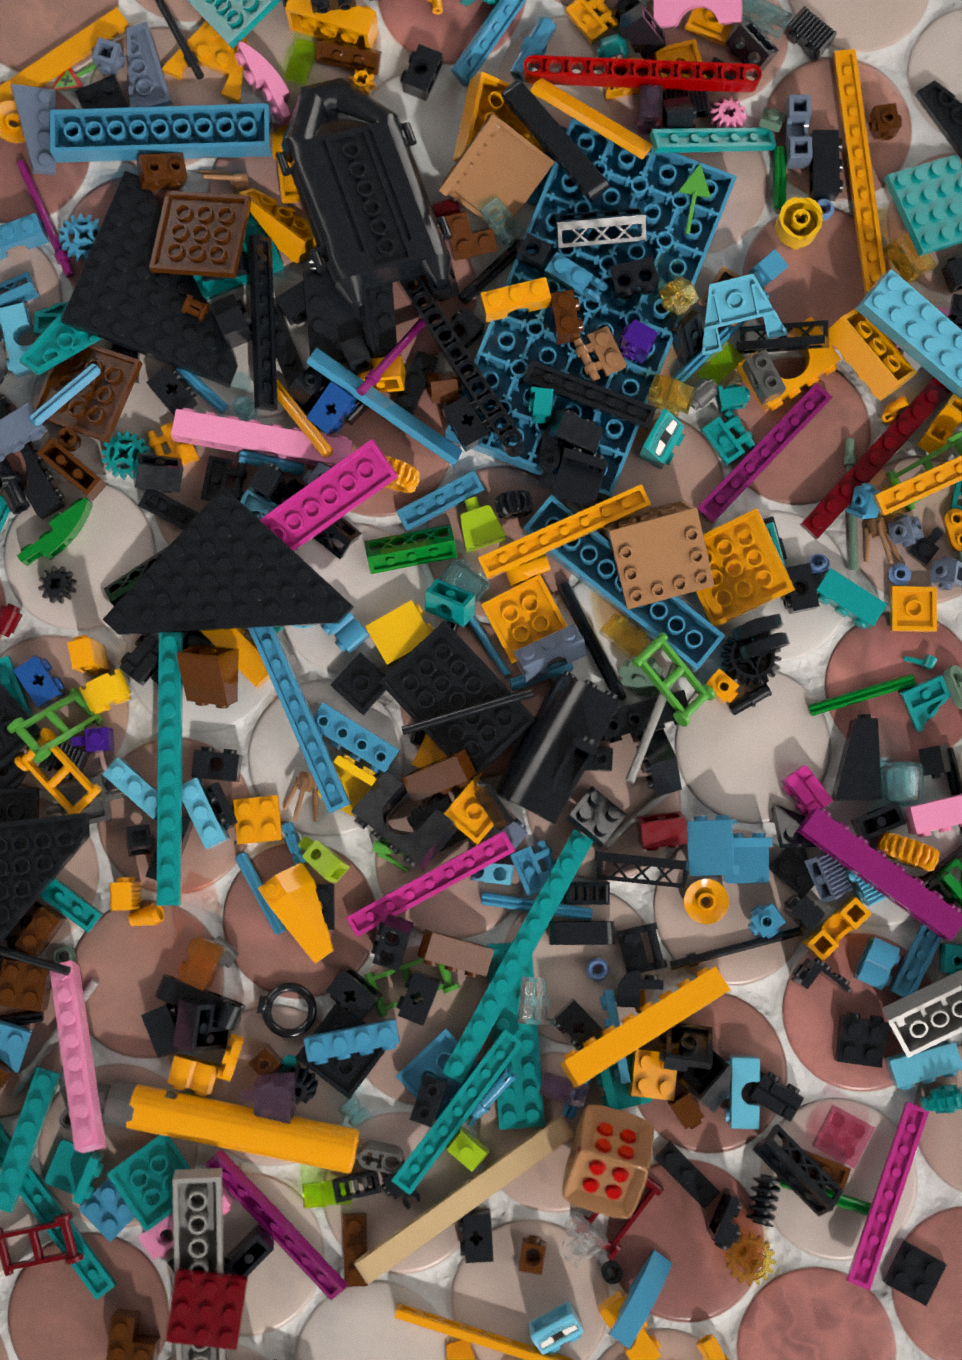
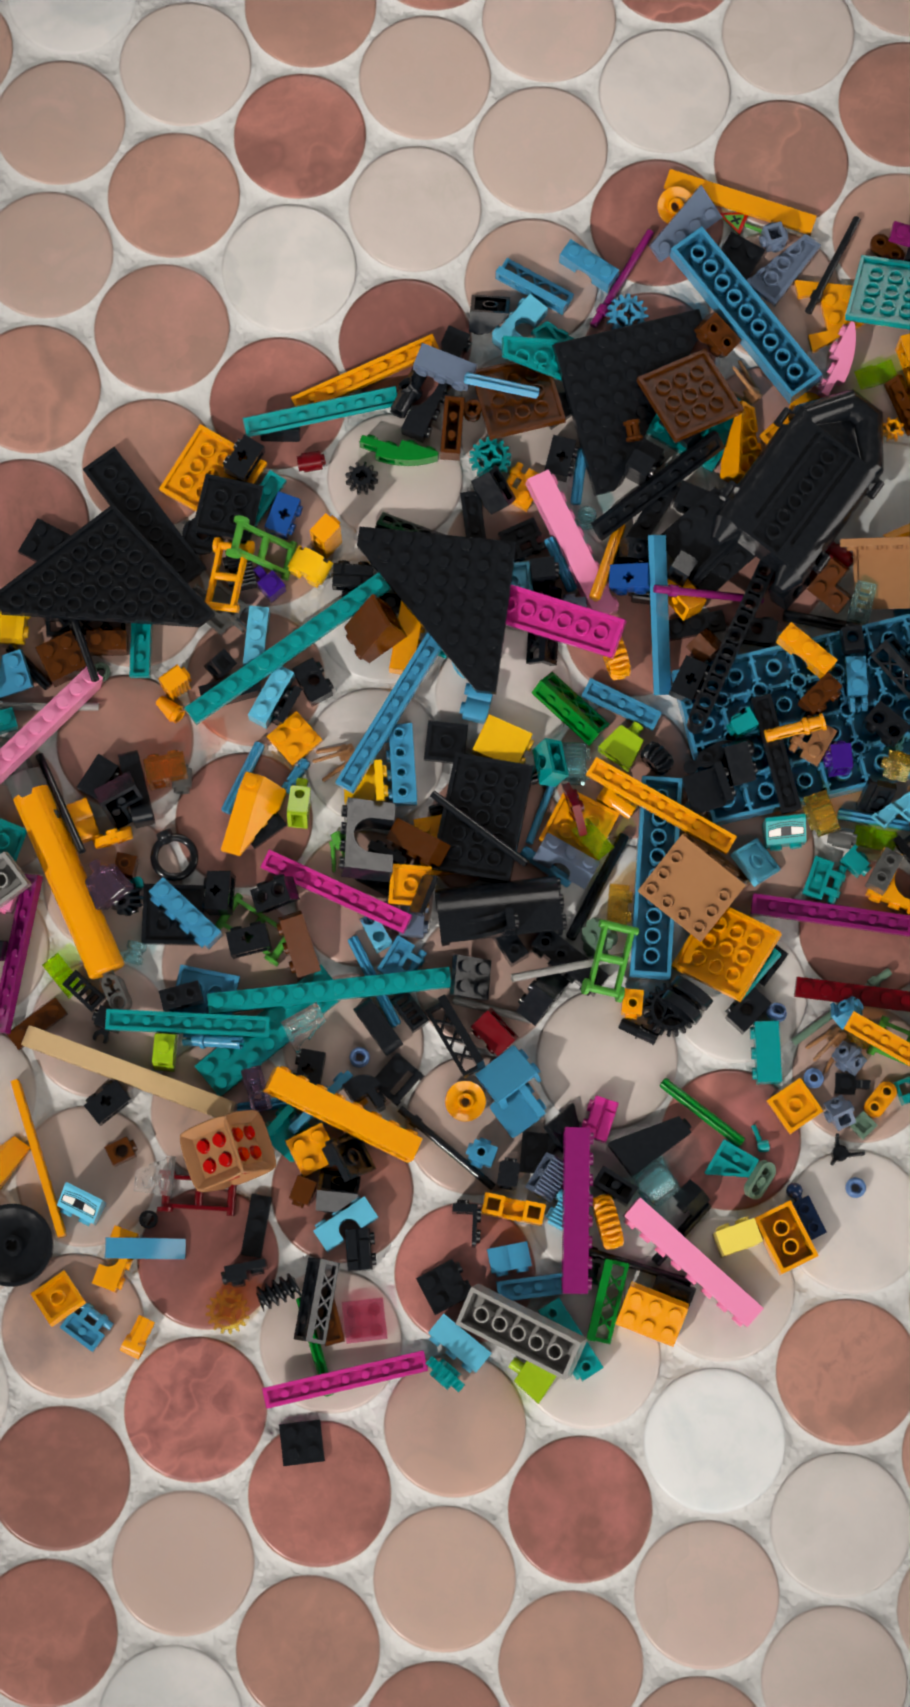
camera: 55 degrees right, 5 degrees down
(163, 1084) = (60, 803): none -> black piece
(510, 609) = (576, 807): none -> dark red wing
(548, 615) = (594, 840): none -> clear neon green slope
(585, 350) = (804, 726): none -> light orange pin
(671, 485) = (755, 862): none -> medium azure plate

